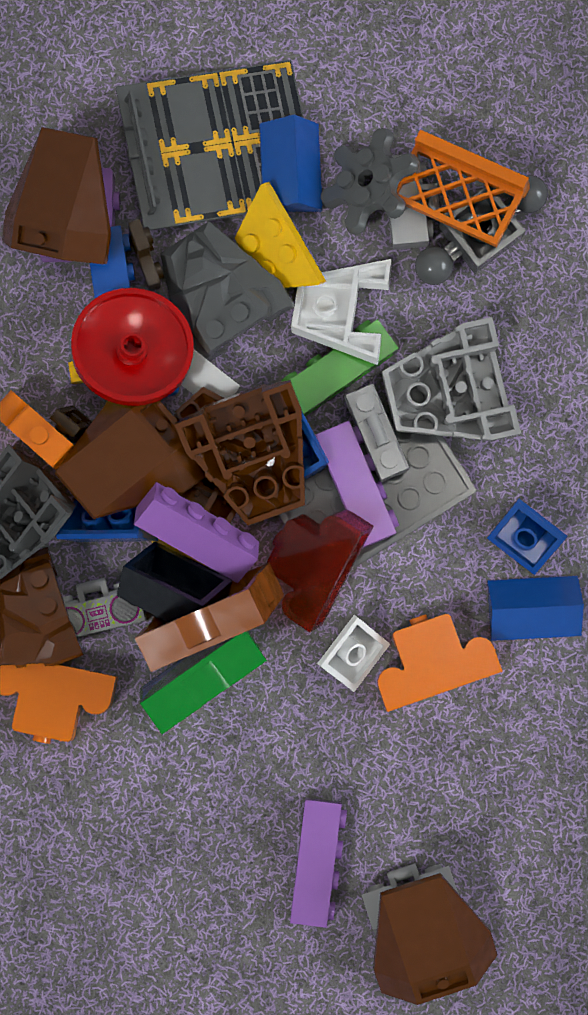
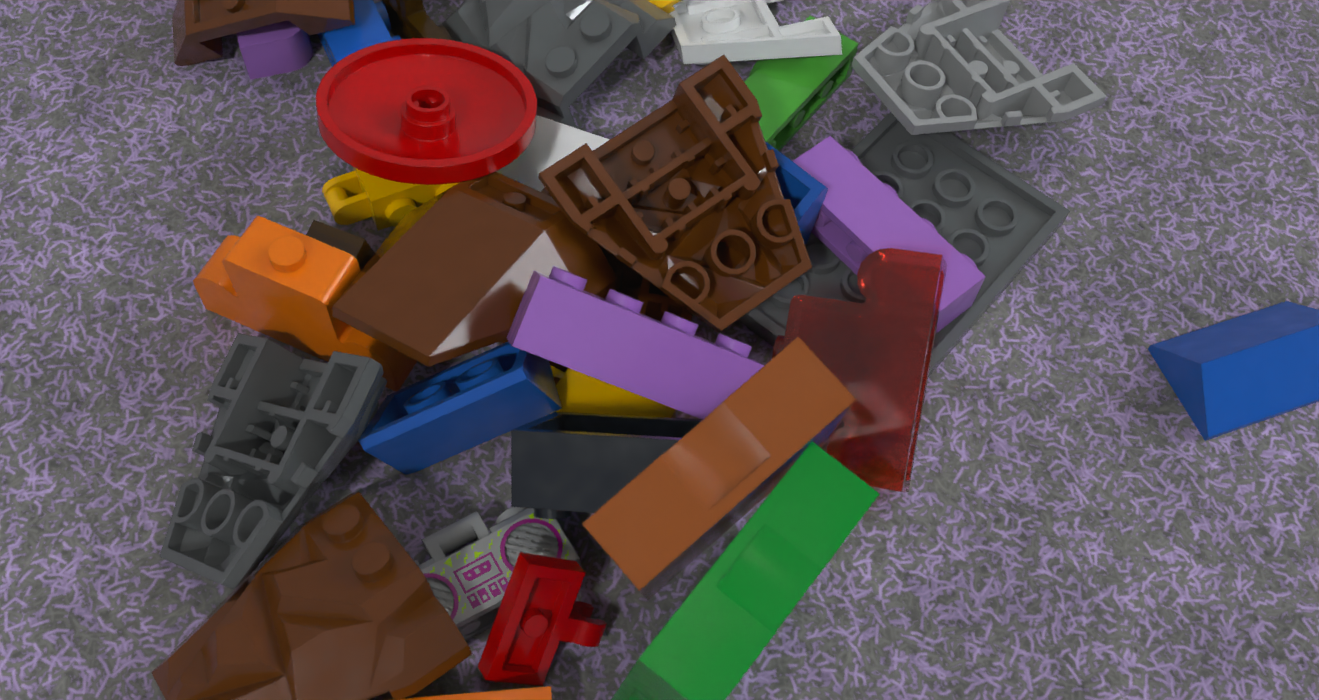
camera: 25 degrees left, 25 degrees down
(116, 643) = (535, 617): none -> red plate
(353, 653) = (985, 518): white slope -> none
(376, 432) = (883, 145): light grey piece -> none
(434, 662) = (1135, 493): orange brick -> none
(526, 536) = (1185, 250): blue slope -> none

